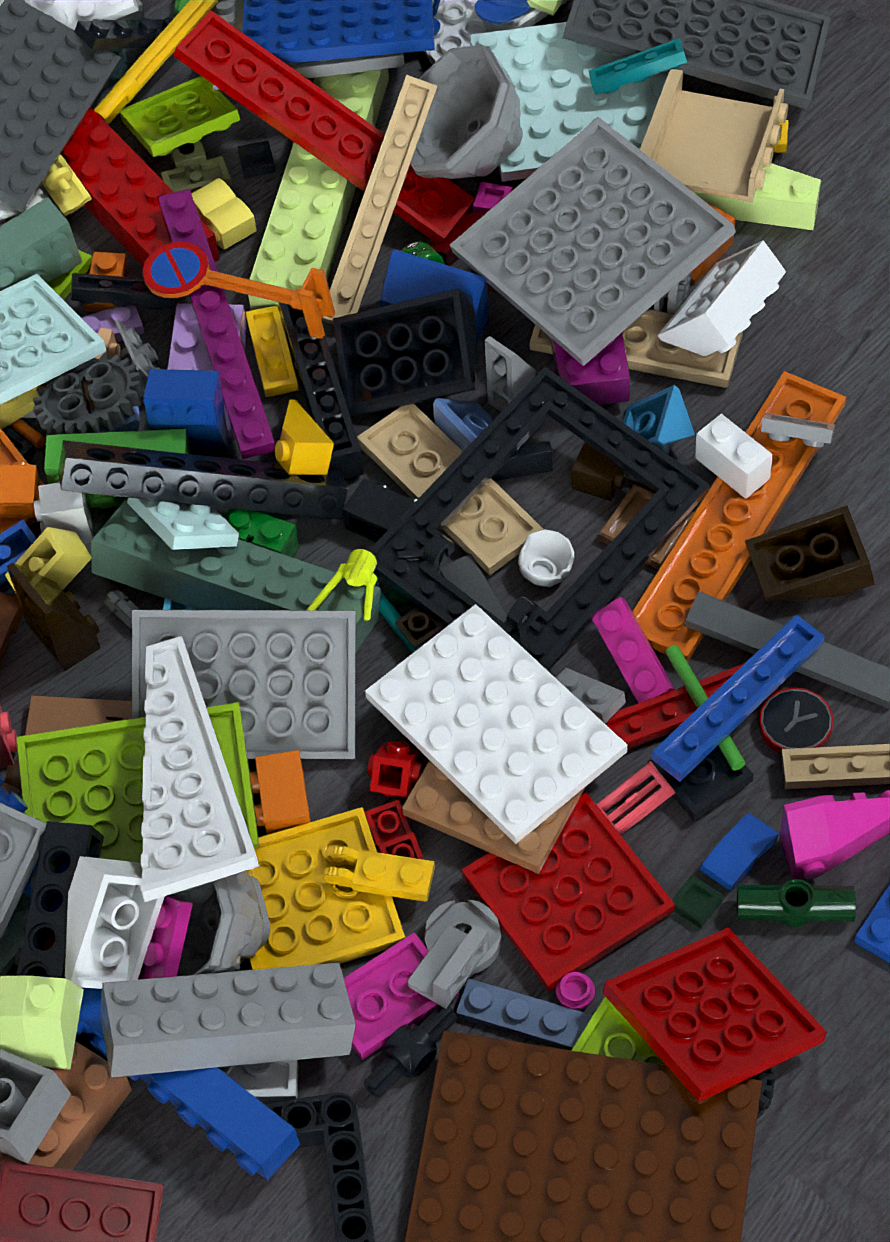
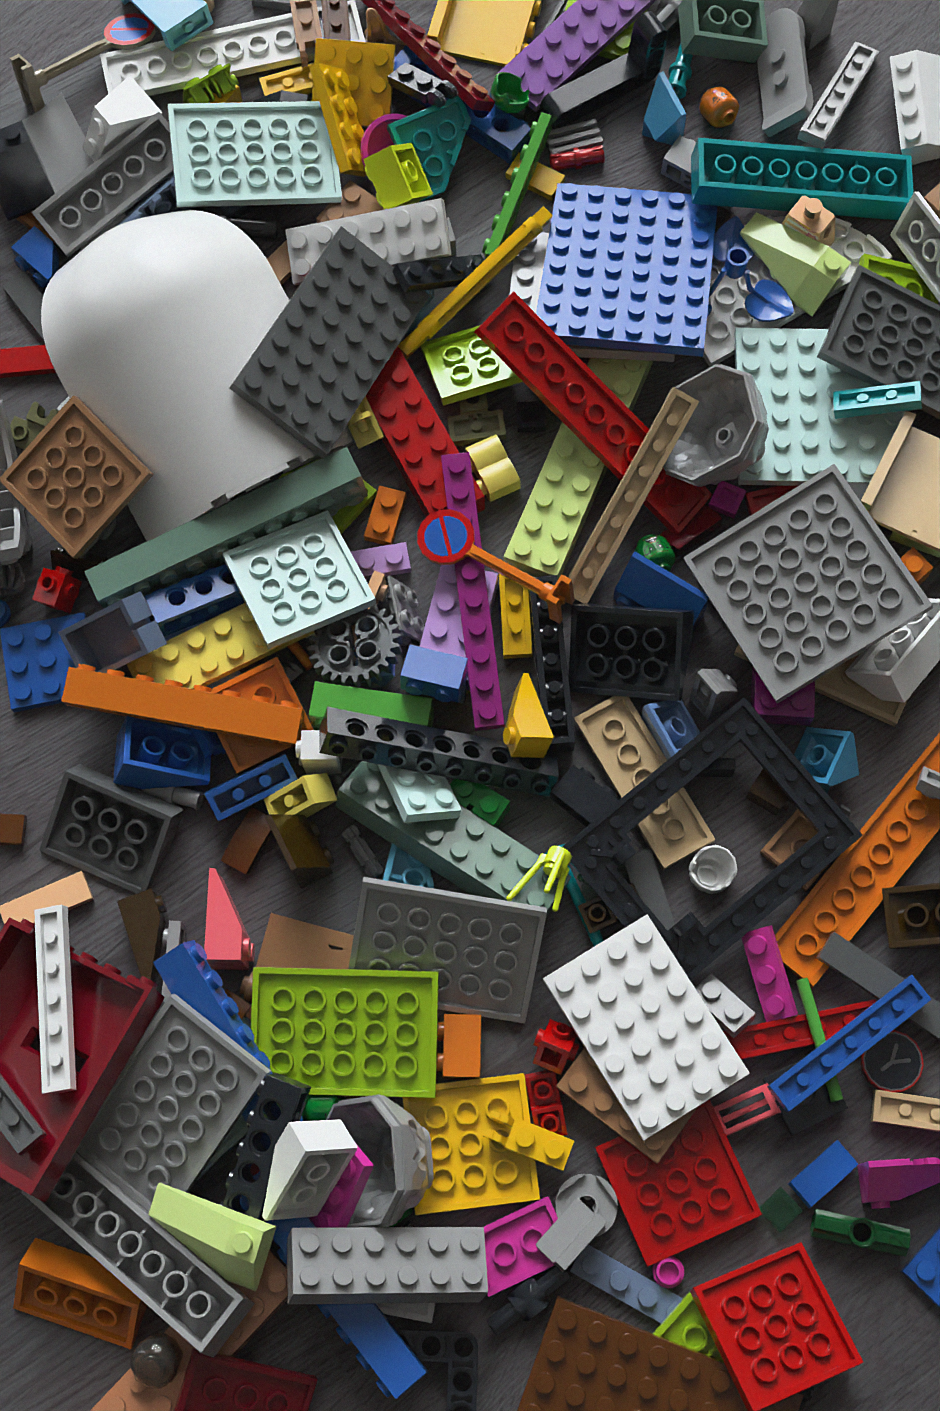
camera: 10 degrees right, 15 degrees up
(115, 290) = (386, 533): black plate -> none
(190, 806) = (384, 1092): white wing -> none
(733, 456) = (887, 807): white brick -> none

